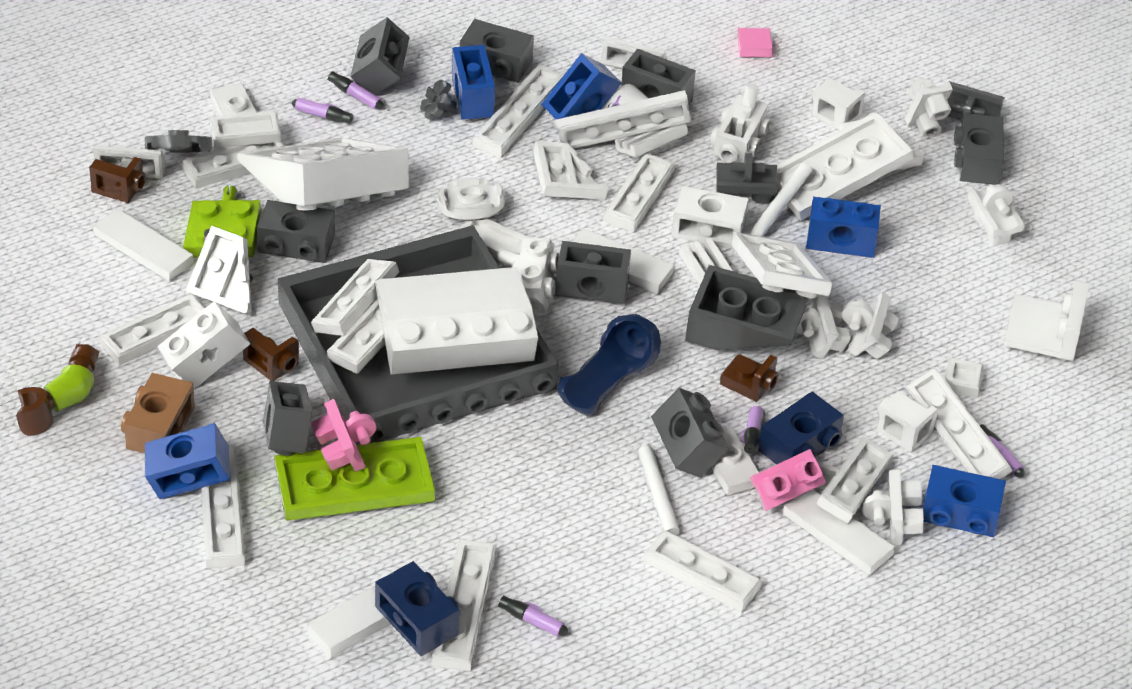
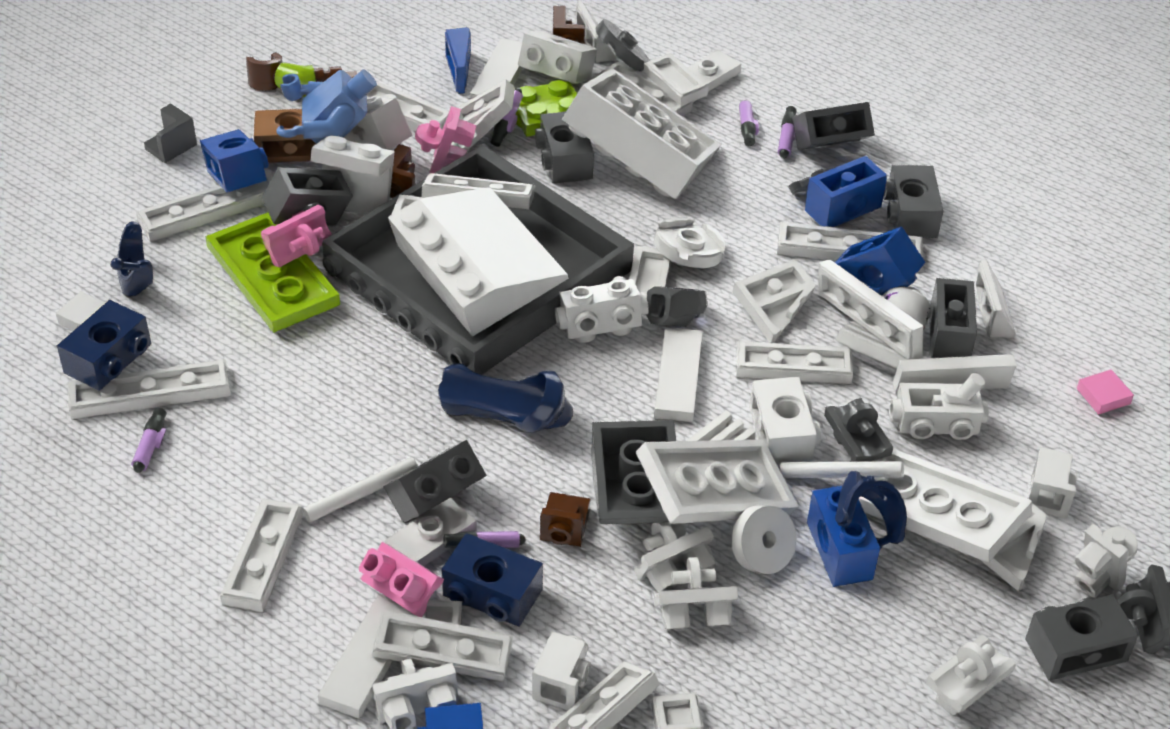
camera: 70 degrees right, 0 degrees up
(97, 506) = (175, 137): none -> dark grey panel
(103, 262) = (458, 55): none -> slope
(163, 192) = (557, 56): none -> white brick
(195, 350) = (330, 105): none -> medium blue torso
(254, 299) = (433, 137): none -> bright pink hips
(274, 362) = (364, 168): none -> white bracket
(294, 585) = (131, 258): none -> dark blue helmet
(547, 224) = (675, 305): none -> dark grey rock
(593, 272) = (628, 347): dark grey brick -> none
(705, 108) = (995, 370): none -> white tile
(833, 267) = (748, 536): none -> white piece
(844, 191) = (882, 495): none -> dark blue helmet

